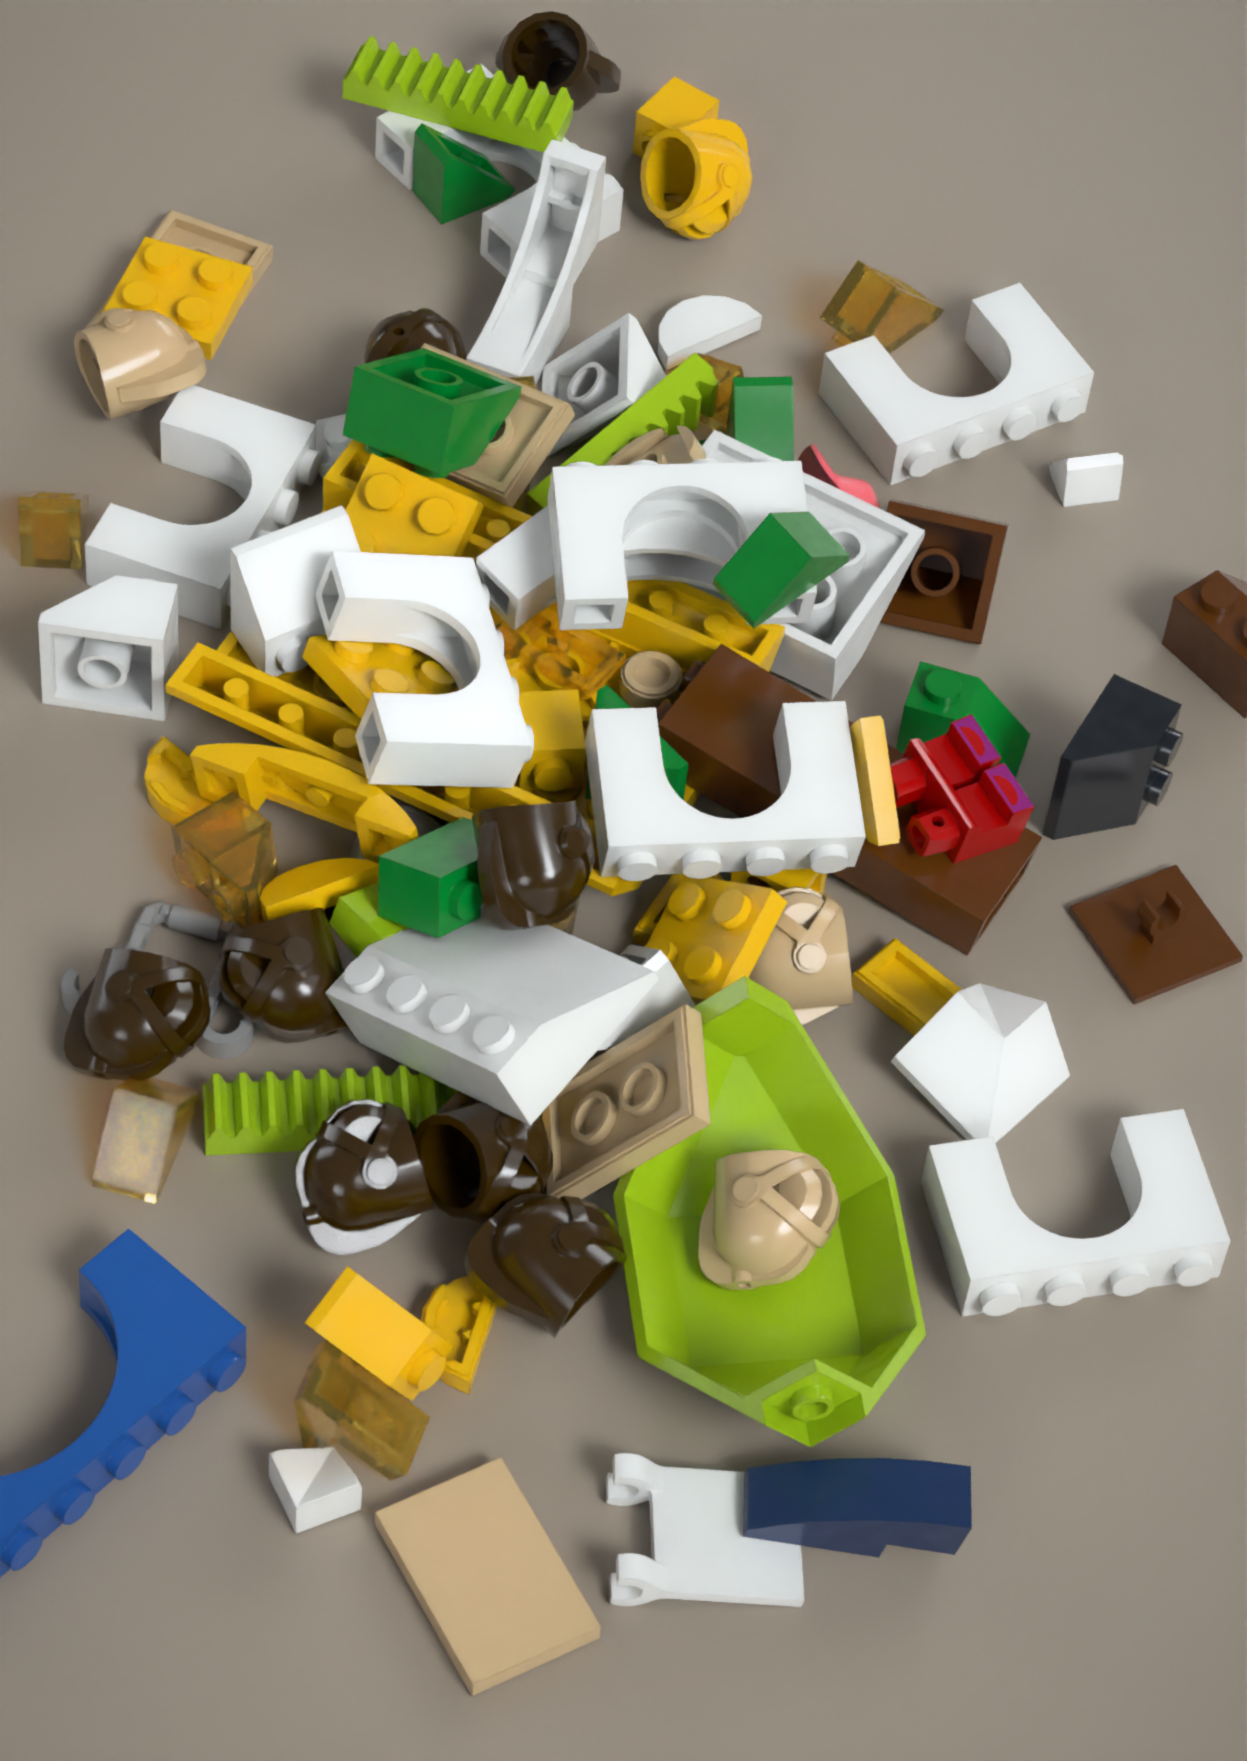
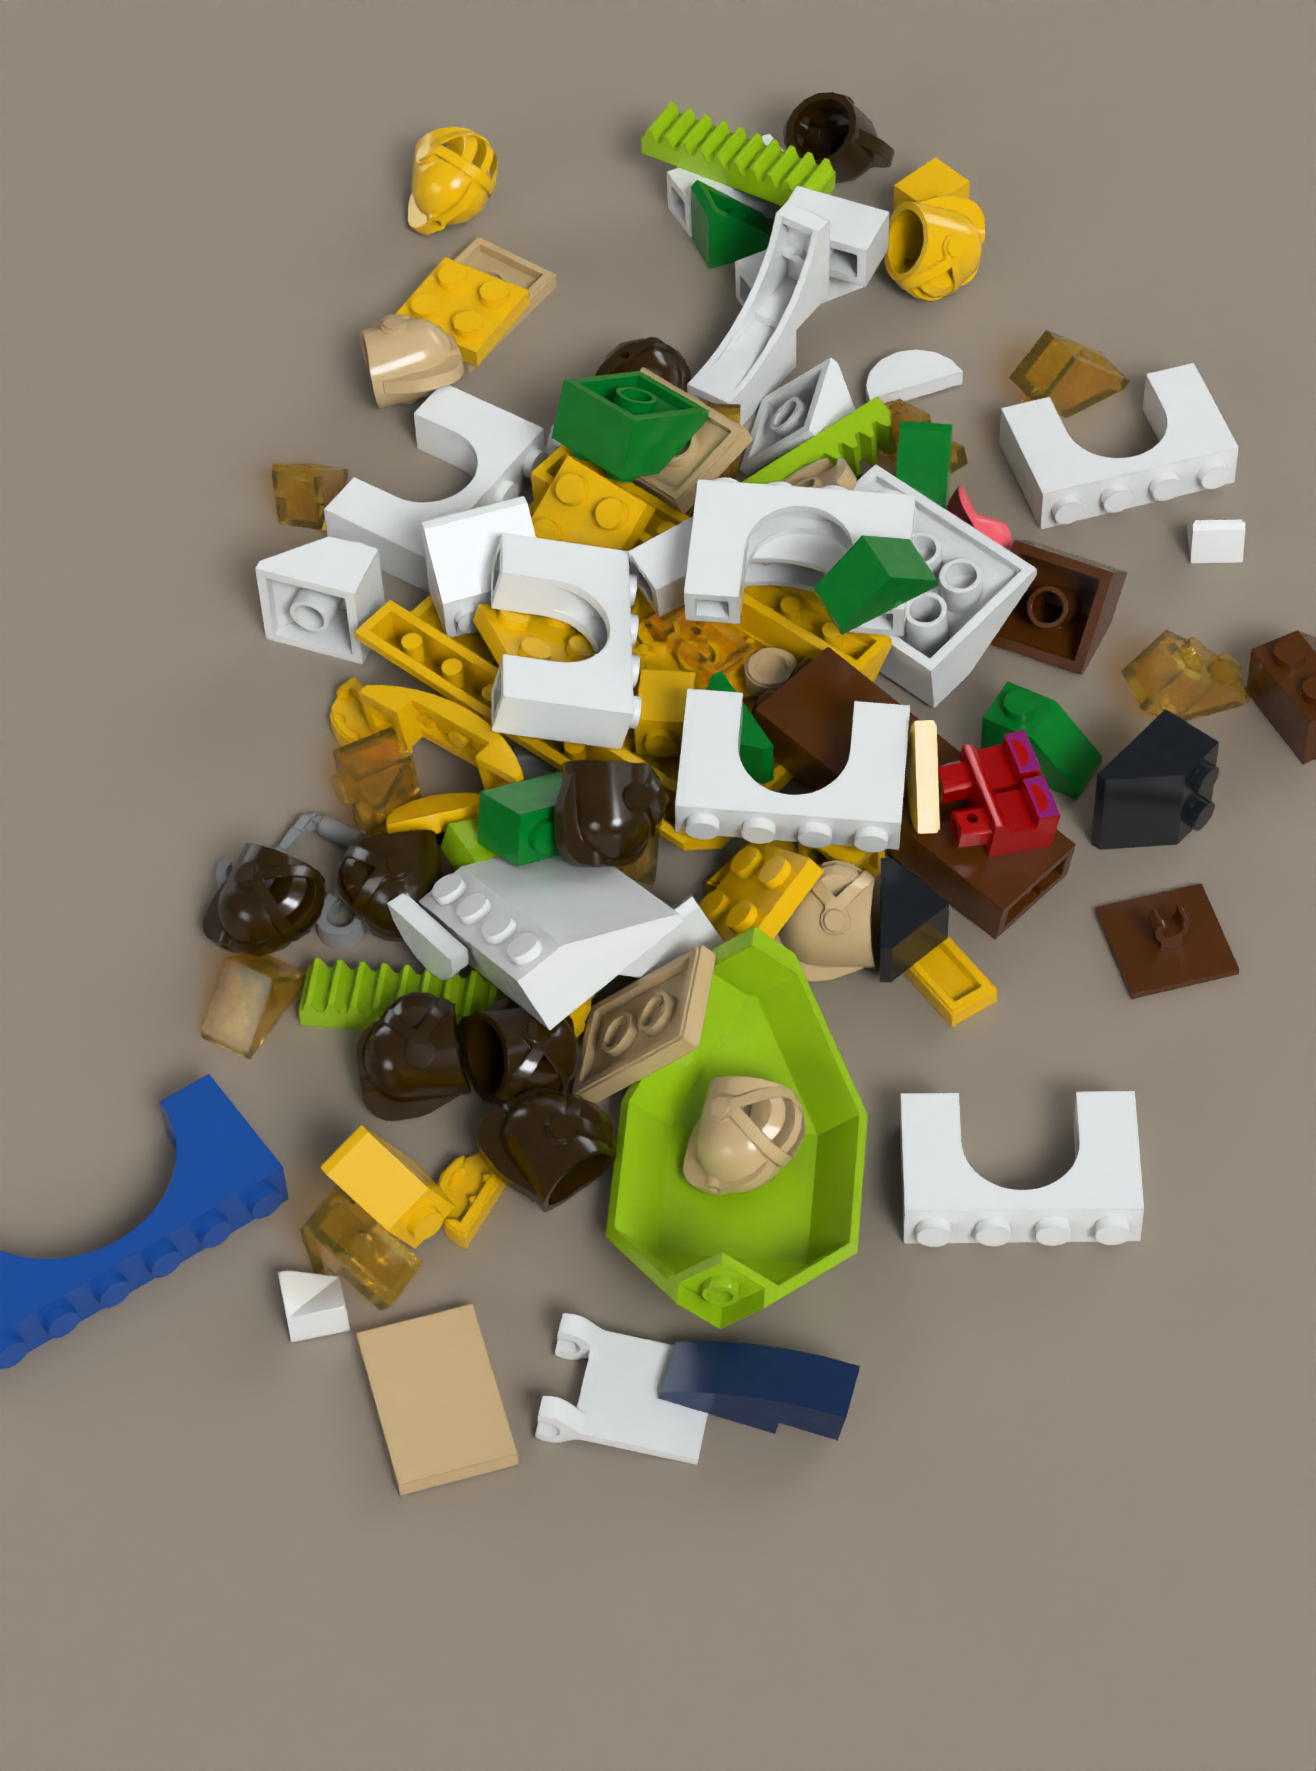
camera: 20 degrees right, 0 degrees up
(125, 149) = (451, 182): none -> yellow helmet
(349, 1037) = (428, 939): none -> white tile
(626, 169) = (856, 234): none -> white brick
(882, 944) = (910, 920): none -> black slope
(985, 1060) = (977, 1029): white slope -> none
(1101, 637) = (1185, 678): none -> clear yellow slope

